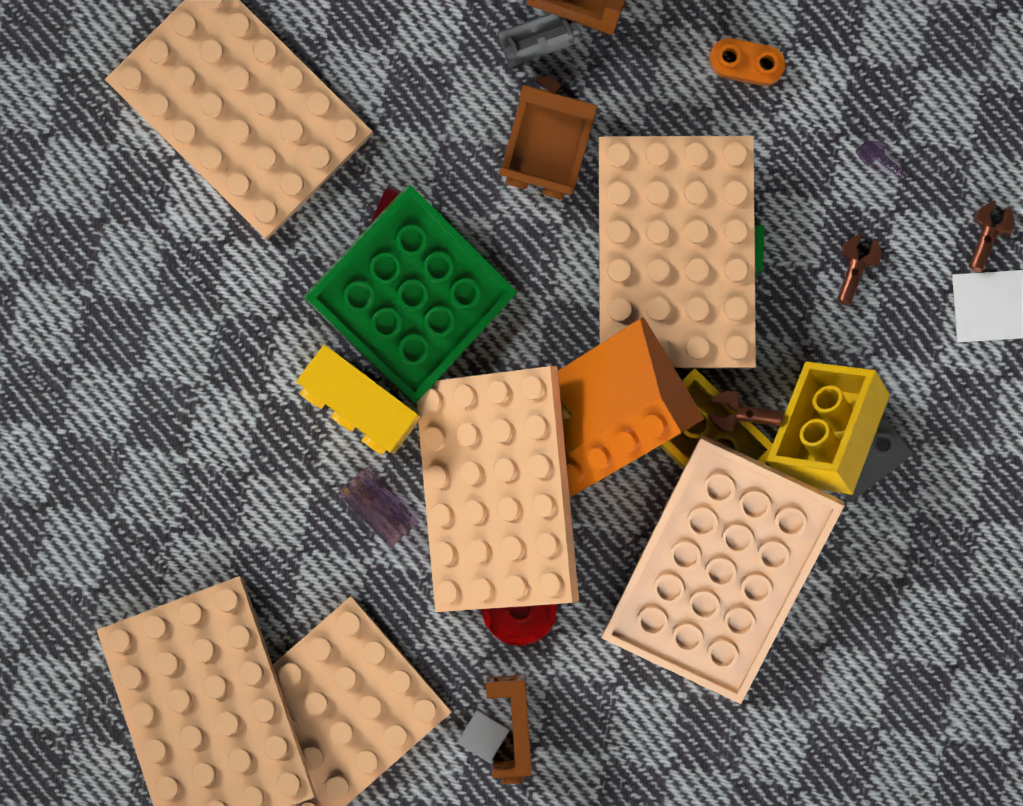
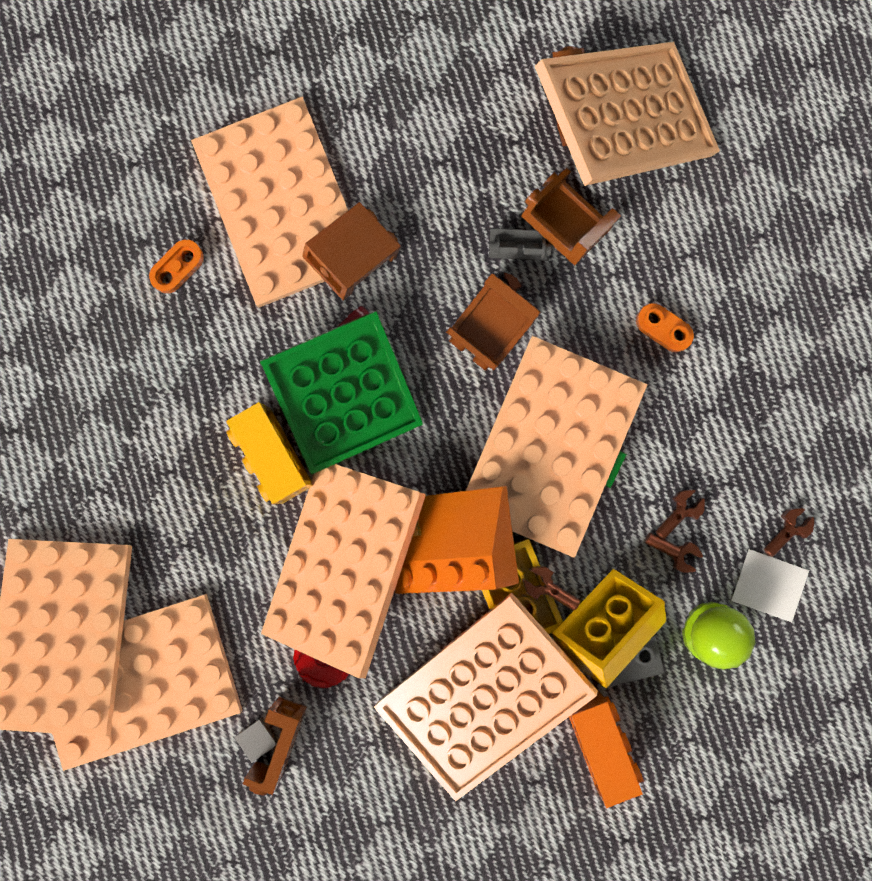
camera: 25 degrees right, 0 degrees up
(149, 232) = (174, 264): none -> orange plate
(348, 127) = (350, 249): none -> dark orange panel
(378, 507) = (252, 538): clear purple plate -> none
(868, 313) = (674, 551): none -> copper bar
(873, 151) = (731, 433): clear purple hand -> none
(882, 567) = (606, 751): none -> orange brick
(957, 386) = (719, 635): none -> lime tile

